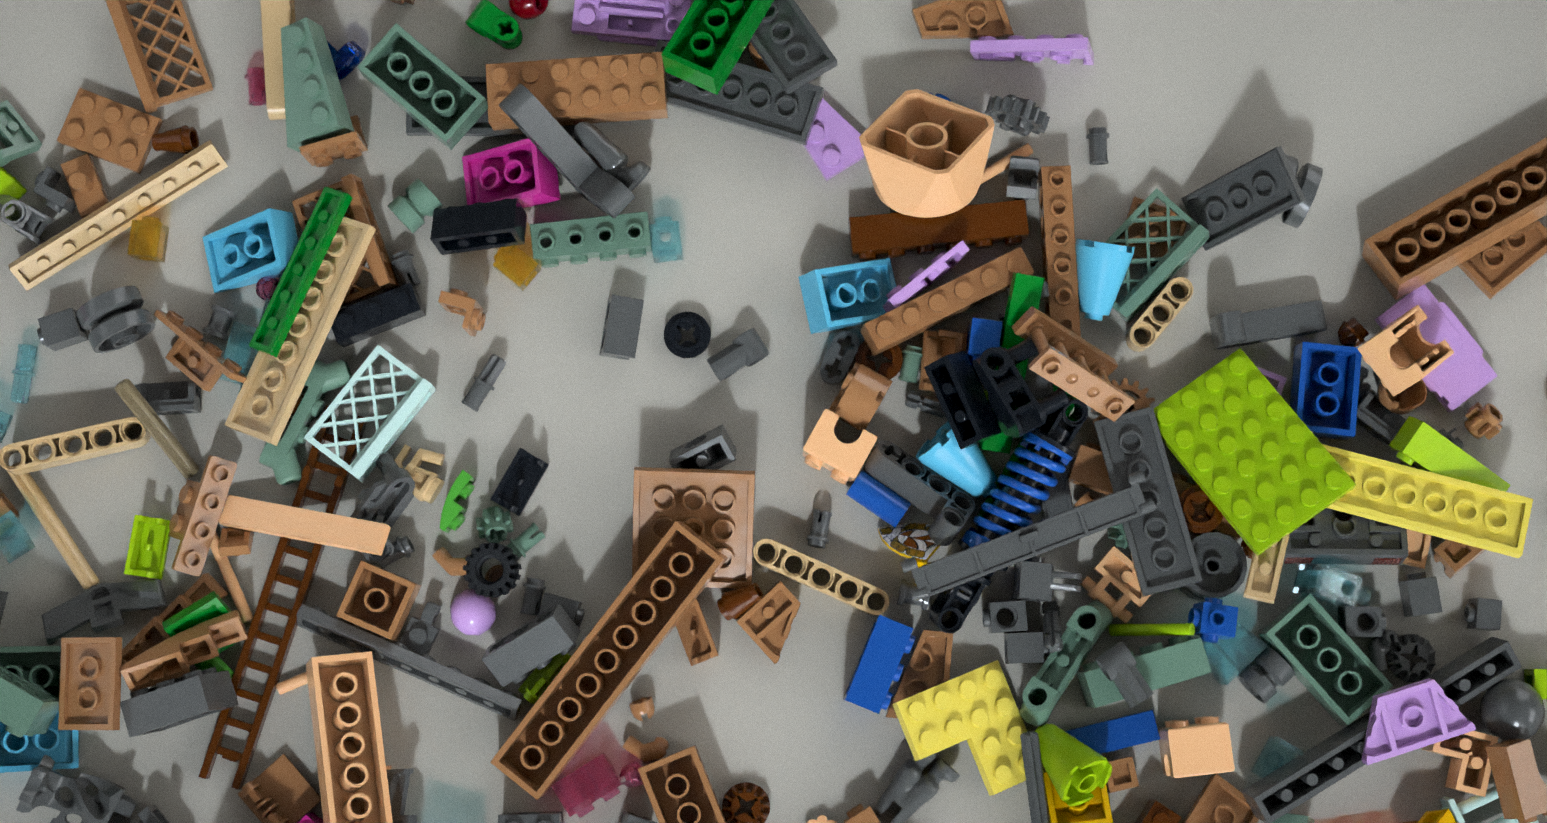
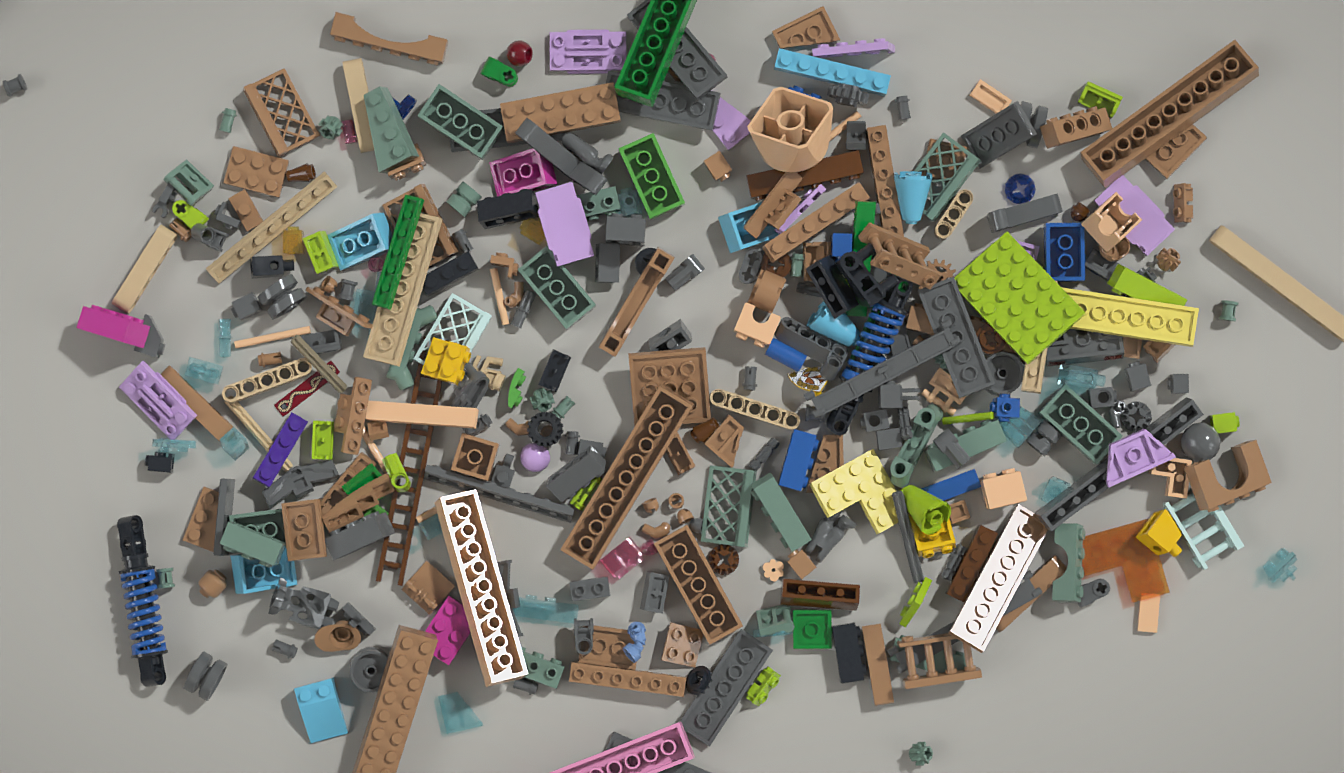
camera: 10 degrees left, 5 degrees up
(77, 49) = (227, 120): none -> sand green pin
(79, 555) = (280, 450): none -> dark purple plate
(86, 413) = (269, 359): none -> medium nougat pin
(91, 271) = (261, 267): none -> black torso
(95, 381) = (272, 337): none -> light nougat bar
(132, 469) = (303, 391): none -> sticker
(187, 260) = (320, 252): none -> lime hinge
(193, 310) = (328, 284): none -> medium nougat hinge
(229, 76) = (330, 127): none -> sand green gear
(252, 609) = (396, 471): none -> lime piece
(294, 703) = (431, 527): none -> clear light blue bracket
(352, 446) = (446, 361): none -> yellow plate
(451, 359) = (499, 296): none -> light nougat bar
(475, 364) = (516, 297): none -> medium nougat arm
(538, 355) = (557, 288): none -> sand green brick
(561, 257) = (564, 224): none -> lavender piece
(654, 277) = (625, 230): none -> dark grey brick
(657, 390) = (636, 301): none -> medium nougat arch
(680, 701) = (674, 498): none -> medium nougat hinge
(692, 731) = (684, 516): none -> medium nougat hinge
(704, 203) = (651, 176): none -> bright green brick
(710, 748) = (696, 525): none -> dark grey hinge
(788, 730) = (745, 506): none -> sand green fence
(807, 201) = (718, 166): none -> medium nougat brick
(827, 648) = (763, 455): none -> dark grey axle
(843, 742) = (781, 512): none -> sand green brick
(889, 266) = (776, 206): none -> medium nougat bracket
(994, 78) = (831, 72): none -> medium azure brick
(1229, 144) = (990, 97): none -> light nougat tile
(1251, 282) = (1017, 197): none -> clear blue gear
(1362, 200) = (1075, 128): none -> medium nougat brick
(1399, 167) = (1102, 98): none -> lime hinge
(1511, 325) = (1182, 211): none -> medium nougat hinge

